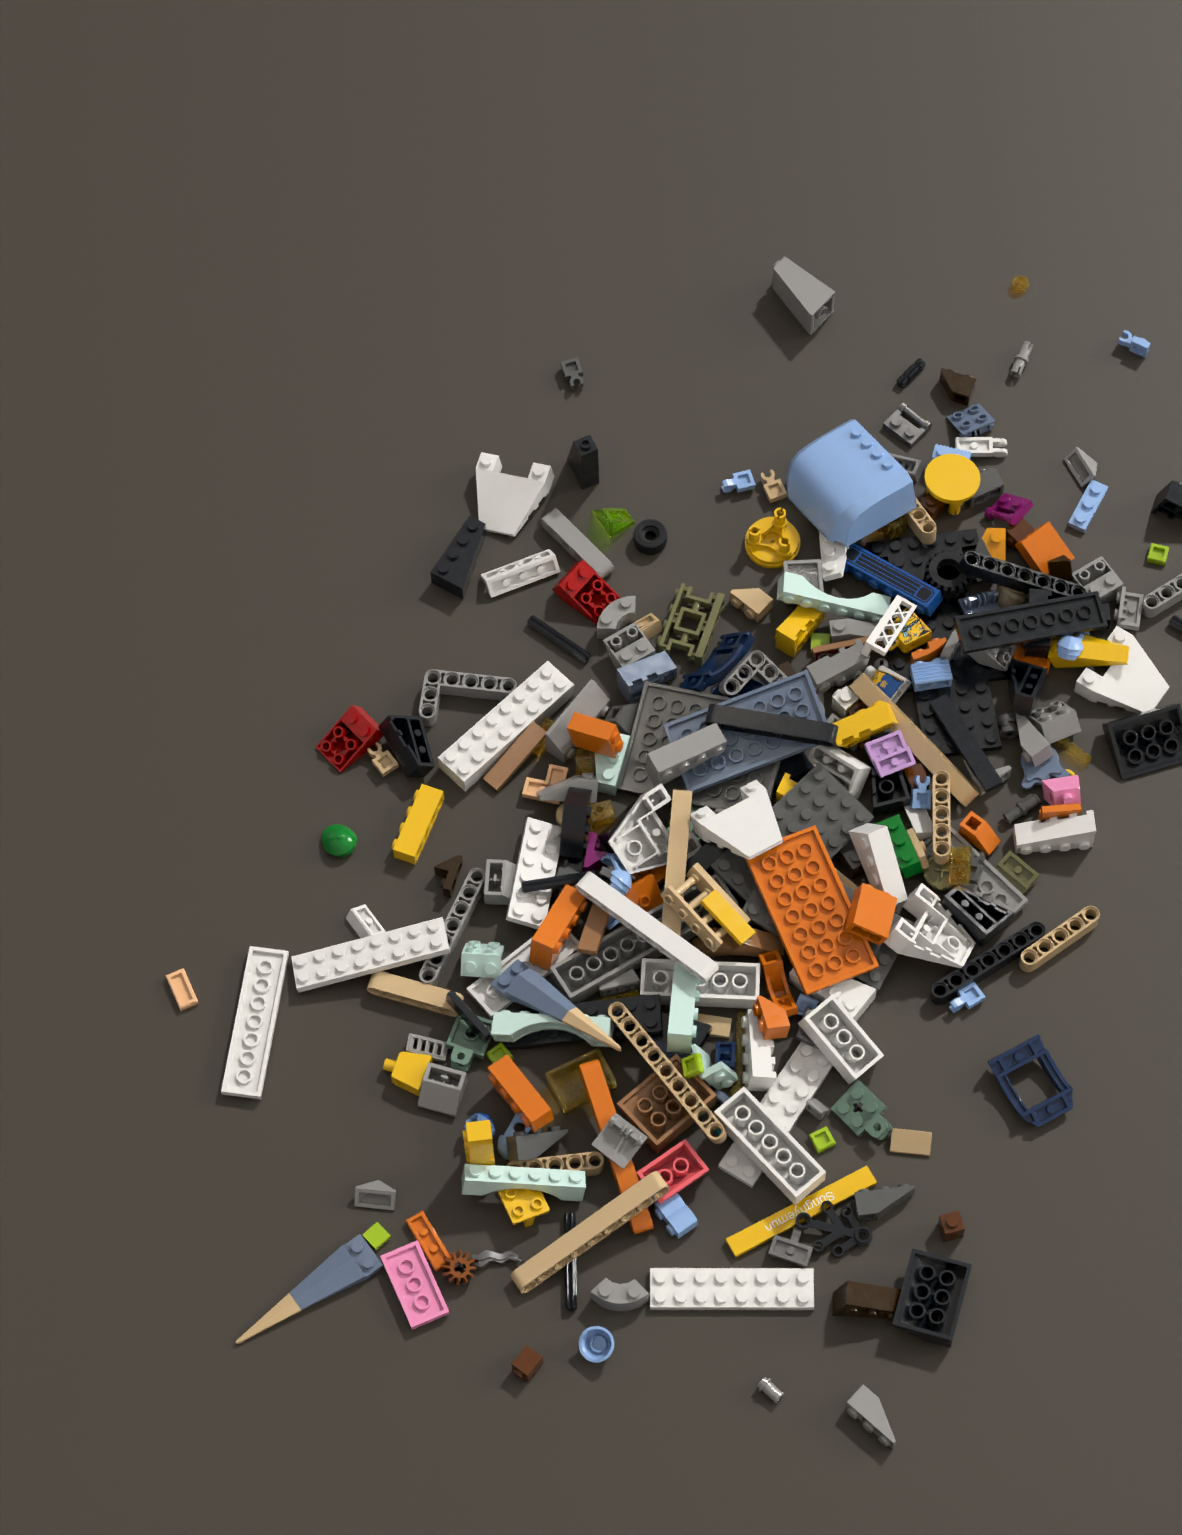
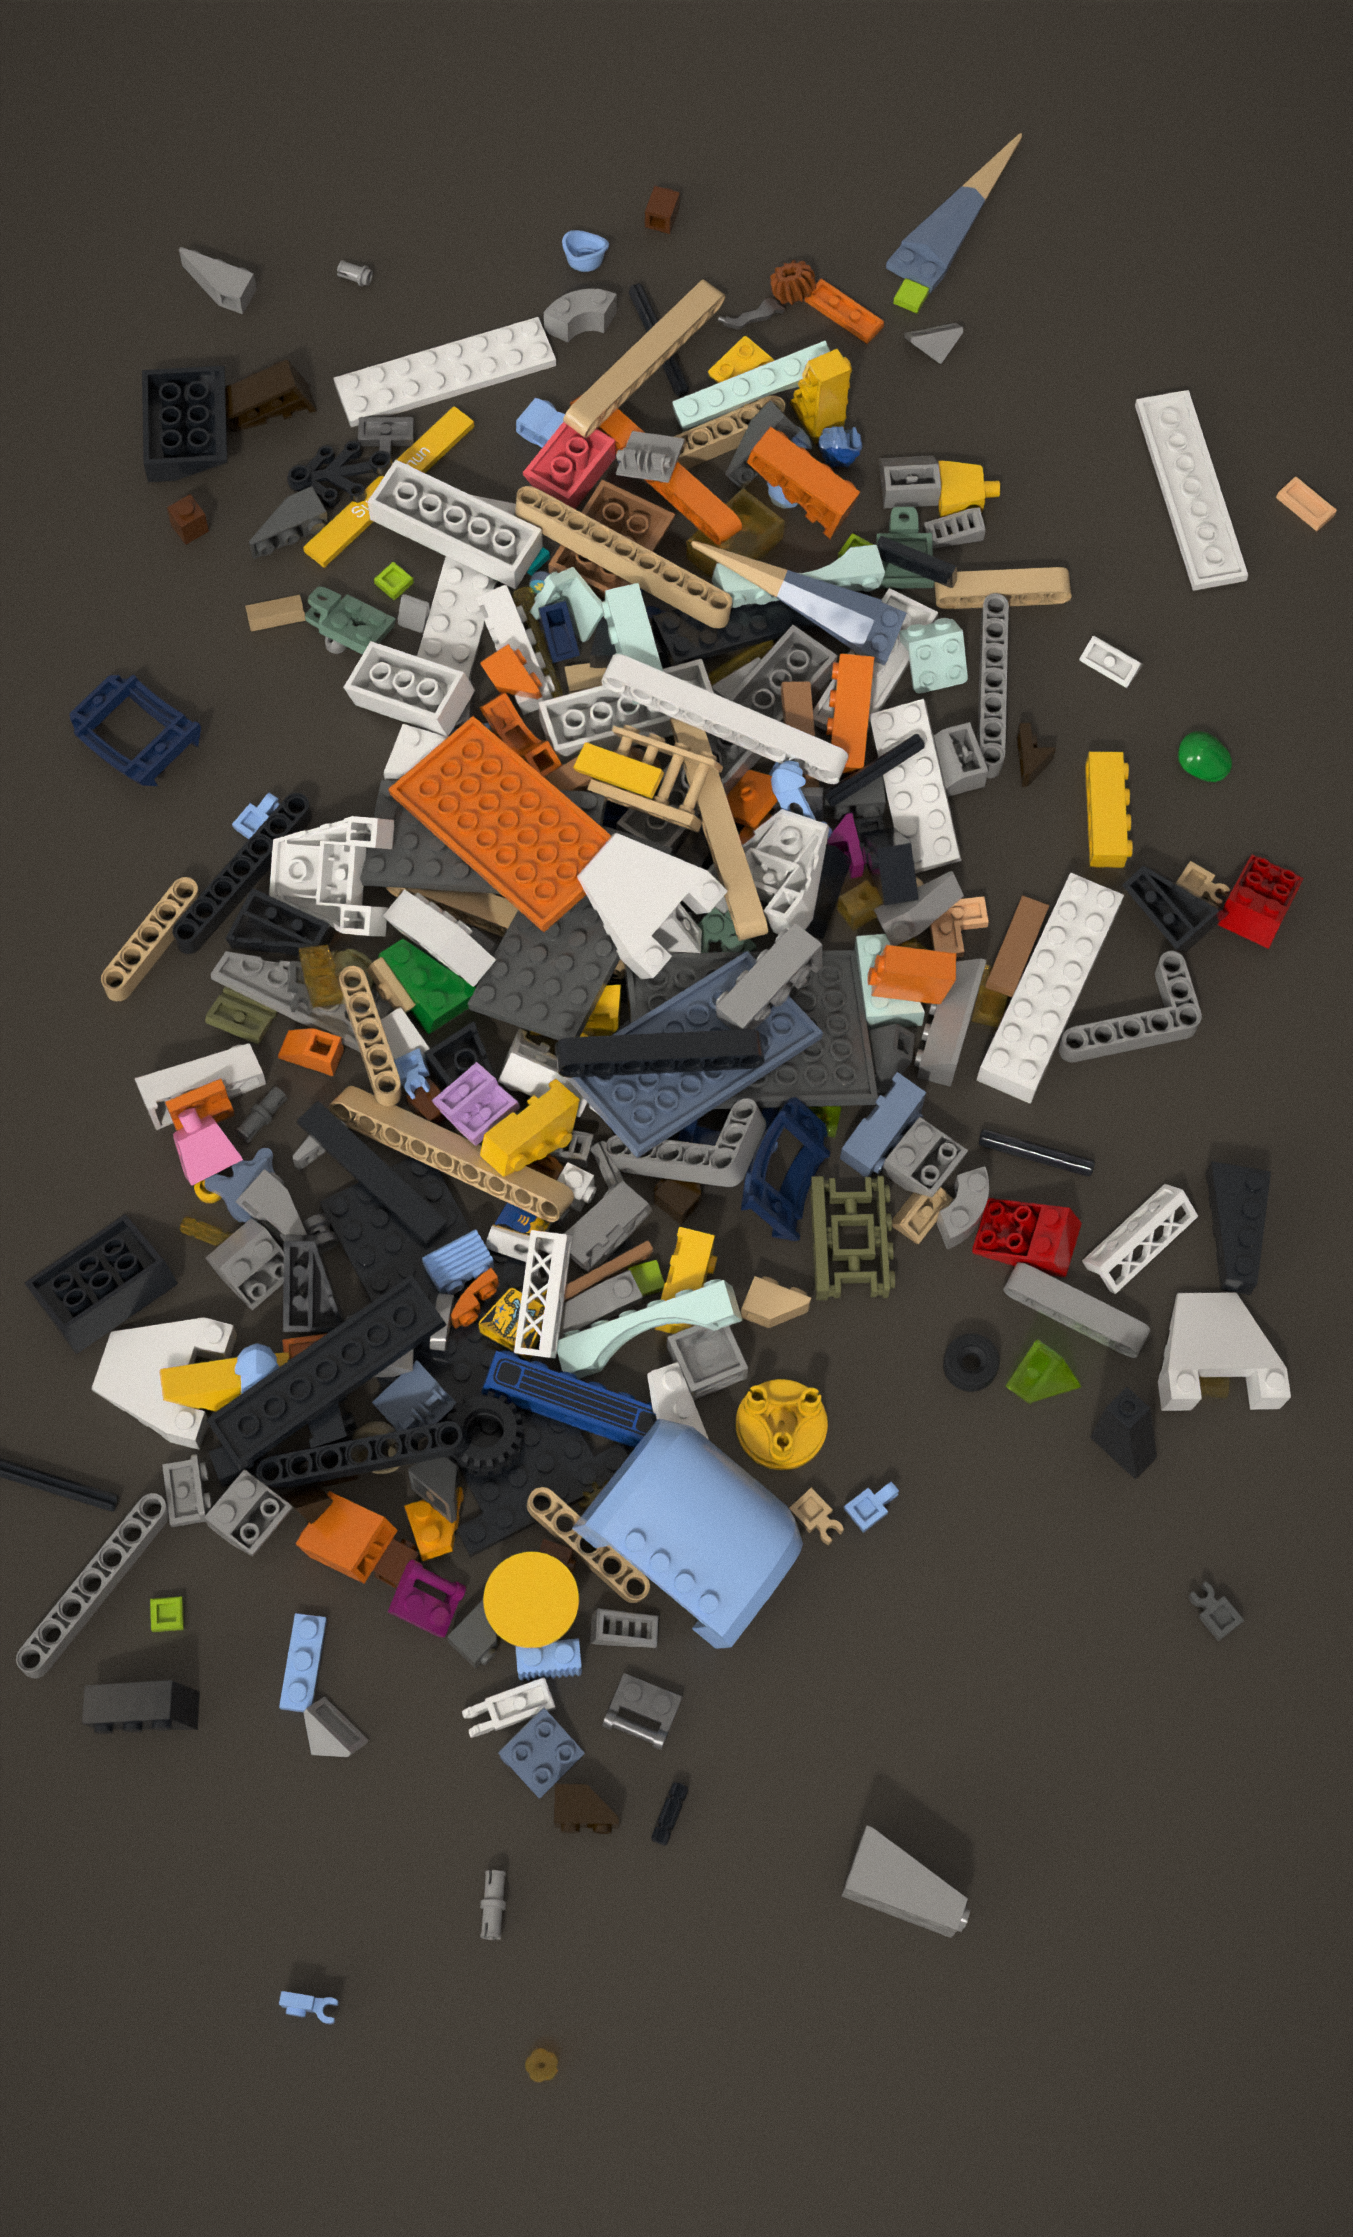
camera: 155 degrees right, 5 degrees up
(370, 954) = (1082, 608): white plate -> none
(414, 1285) = (838, 253): bright pink plate -> none
(692, 1065) = (592, 580): lime tile -> none
(871, 914) = (420, 840): orange brick -> none

